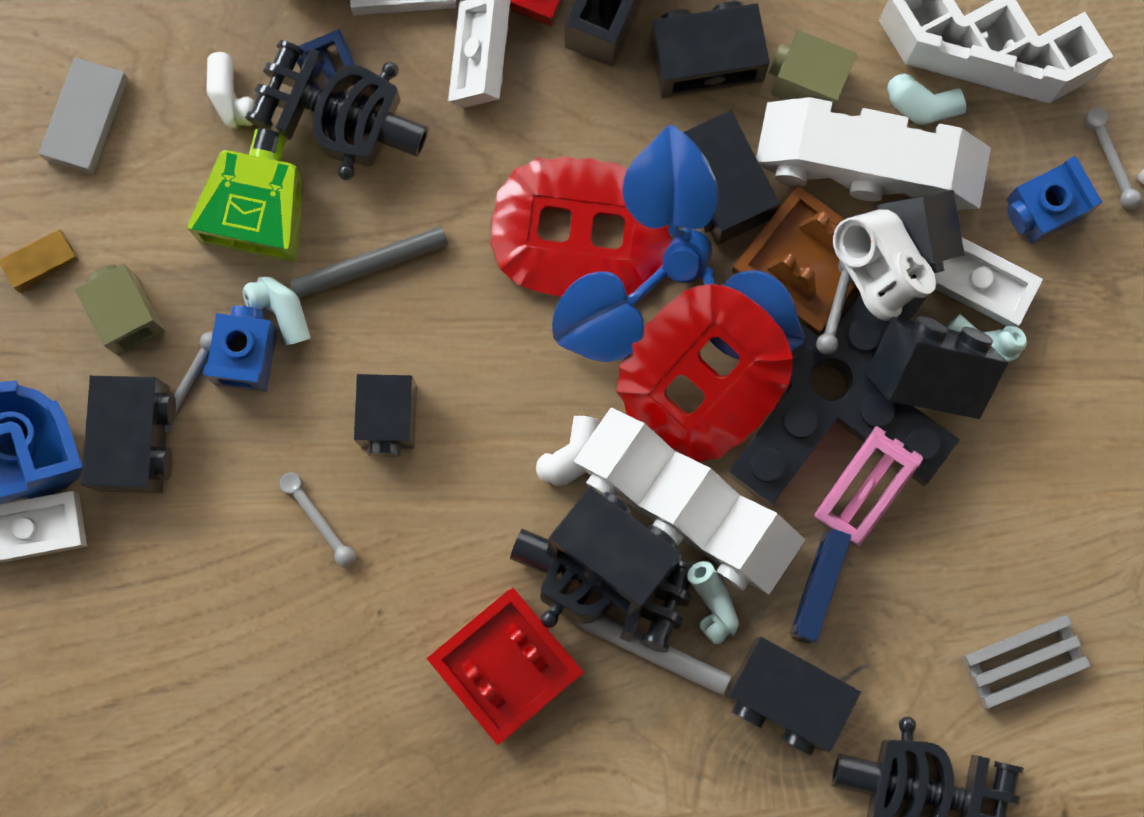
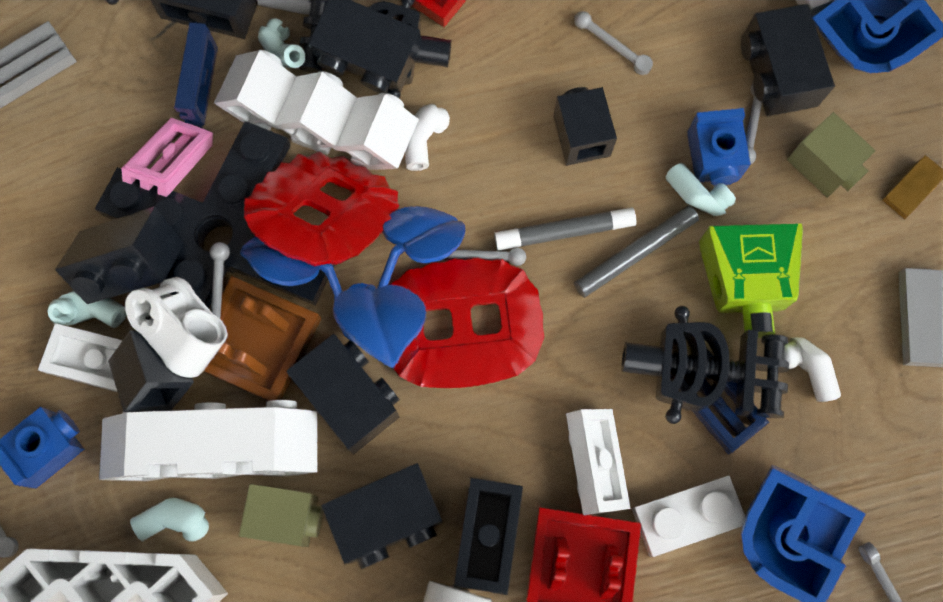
camera: 165 degrees right, 5 degrees down
(440, 306) = (565, 229): none -> dark grey bar
(503, 289) = (515, 256): none -> light grey hinge

